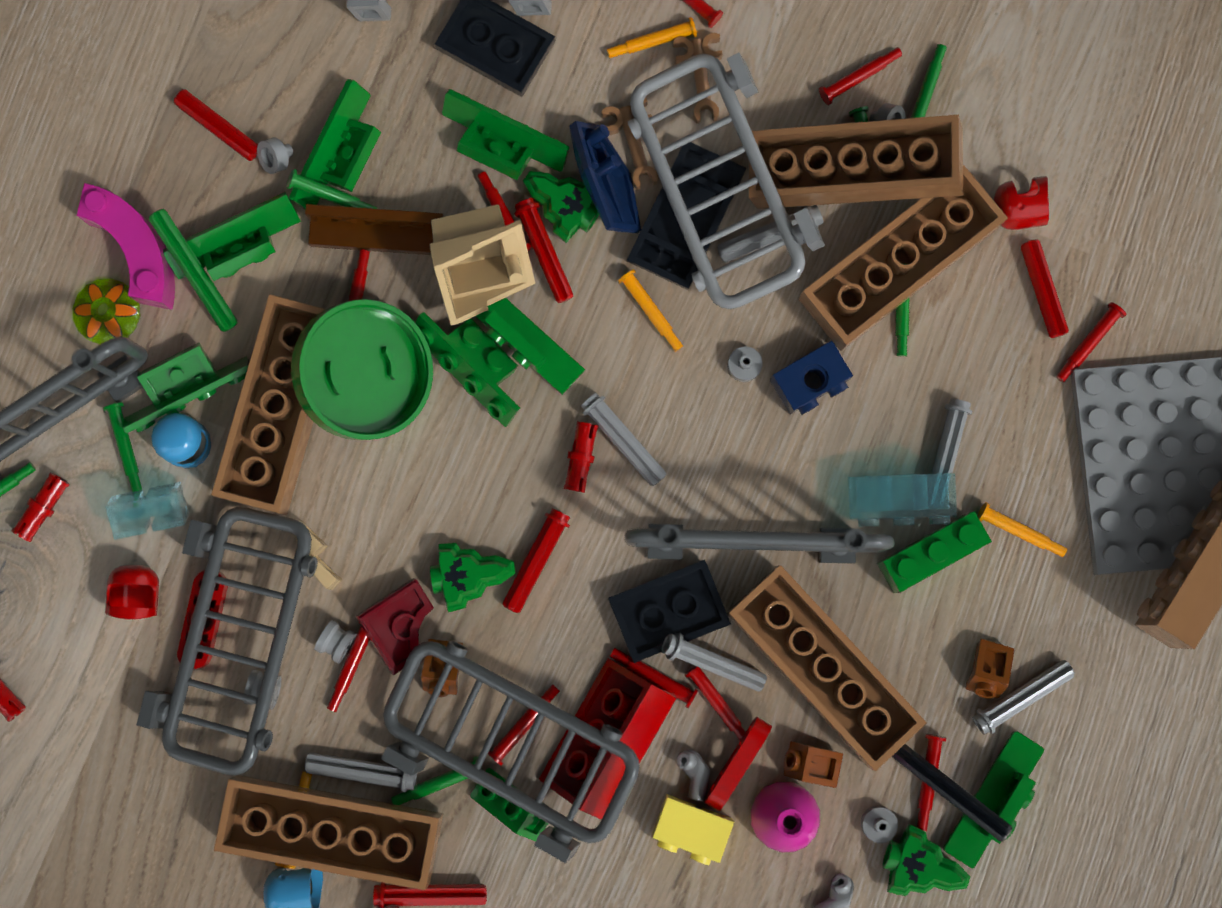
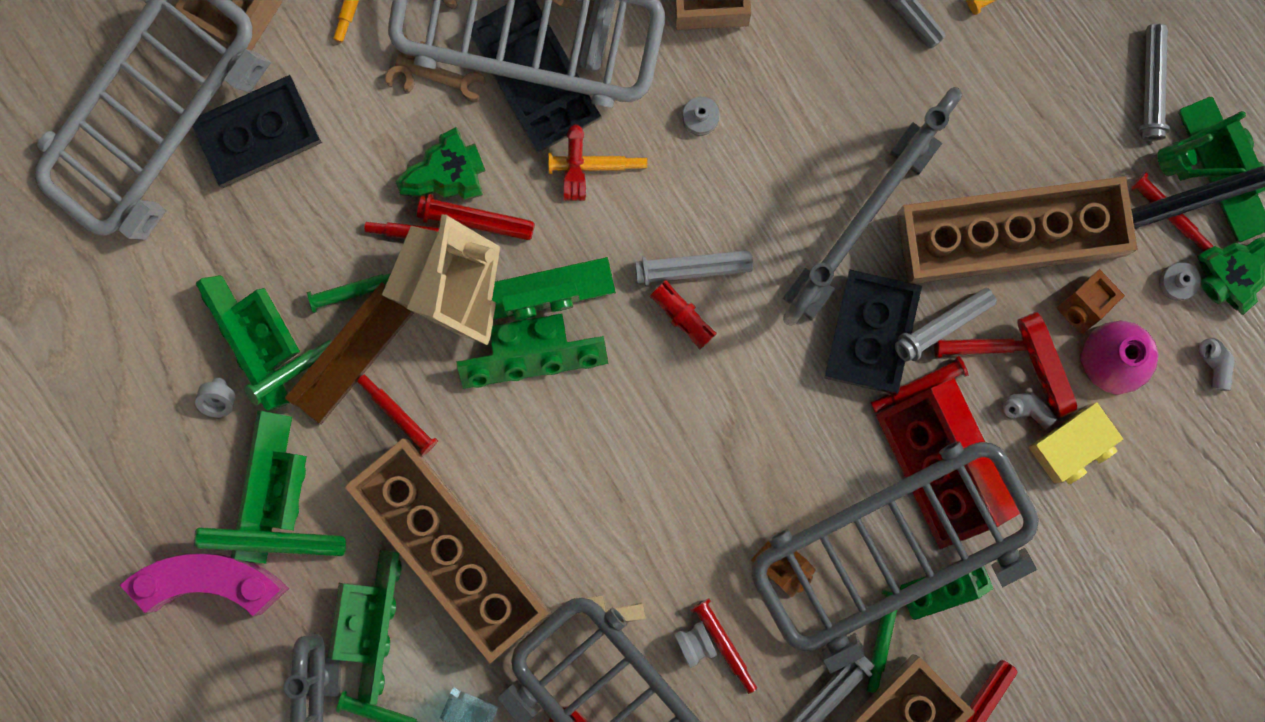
camera: 55 degrees left, 0 degrees up
(120, 317) = (266, 649): clear neon green dish -> none
(178, 438) = (416, 660): dark azure helmet -> none
(216, 124) = (148, 431): red axle -> none
(362, 370) = (472, 451): green piece -> none
(396, 622) = (716, 580): dark red tile -> none
(419, 192) = (346, 291): none -> green piece
(466, 574) = (717, 486): green rock -> none
(500, 139) = (347, 188): green bracket -> none
(519, 729) = (885, 533): red piece -> none
(535, 560) = (746, 417): red axle -> none
(605, 177) = (449, 118): dark blue piece -> none
(628, 302) = (574, 177): none -> red piece
(825, 363) = (755, 44): dark blue brick -> none
(903, 499) = (917, 61): clear light blue brick -> none
(934, 552) = (980, 69): green brick -> none
(978, 758) = (1182, 154): none -> green plant
(990, 669) = (1113, 92): dark orange bracket -> none

